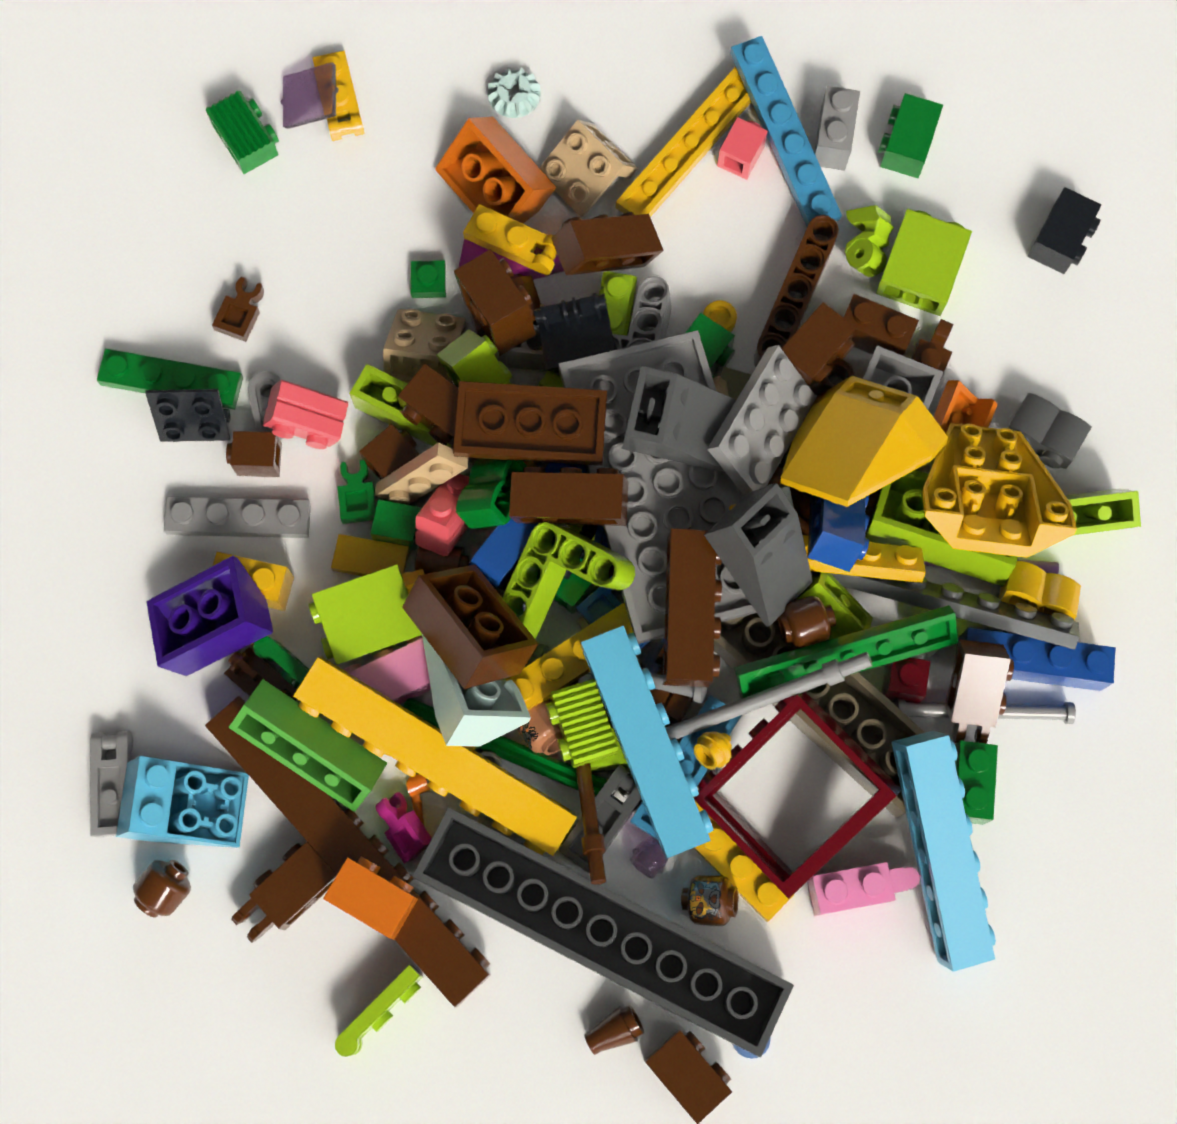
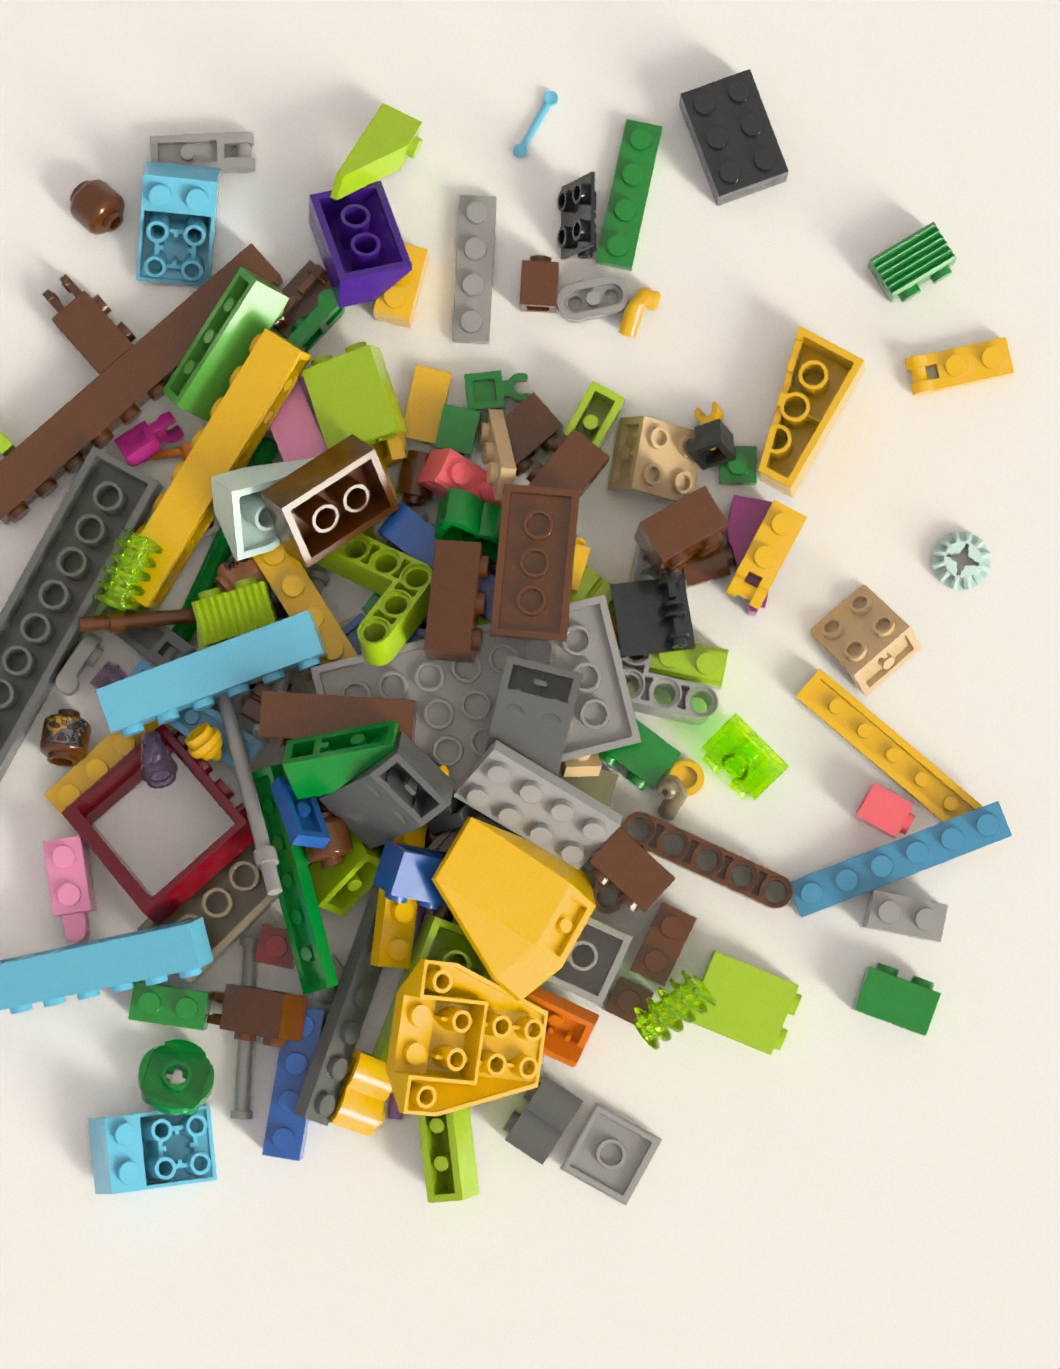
camera: 95 degrees right, 10 degrees up
(74, 453) = (550, 100): none -> medium azure hinge
(115, 601) = (379, 151): none -> lime slope
(118, 283) = (733, 137): none -> black brick
(239, 314) = (696, 263): reddish brown plate -> none
(272, 362) = (635, 308): none -> yellow arm
(305, 414) = (576, 335): coral brick -> none
(309, 95) = (955, 334): clear purple piece -> none
(370, 897) = (73, 407): orange brick -> none
(374, 213) = (811, 399): none -> yellow wedge
(407, 292) = (712, 440): none -> pearl dark grey piece
(473, 360) = (616, 514): lime brick -> none
(494, 171) = (855, 537): orange slope -> none
(543, 831) = (128, 571): none -> clear neon green piece
(606, 243) = (760, 654): reddish brown brick -> none
(624, 882) = (86, 653): none -> light grey plate
(701, 259) = (743, 758): none -> clear neon green slope
(732, 598) = (332, 759): none -> green slope
(737, 796) = (156, 761): none -> clear purple cone
(738, 321) = (674, 793): none -> dark tan arm
(787, 638) = (300, 816): none -> blue plate
(865, 249) = (754, 941): lime leg -> none
(940, 309) = (672, 1008): none -> clear neon green piece
(1056, 791) = (173, 1098): none -> green plate
(1065, 230) = (776, 1163): black brick -> none
(1071, 373) = (611, 1153): none -> light grey plate
(1114, 800) = (151, 1150): none -> medium azure slope

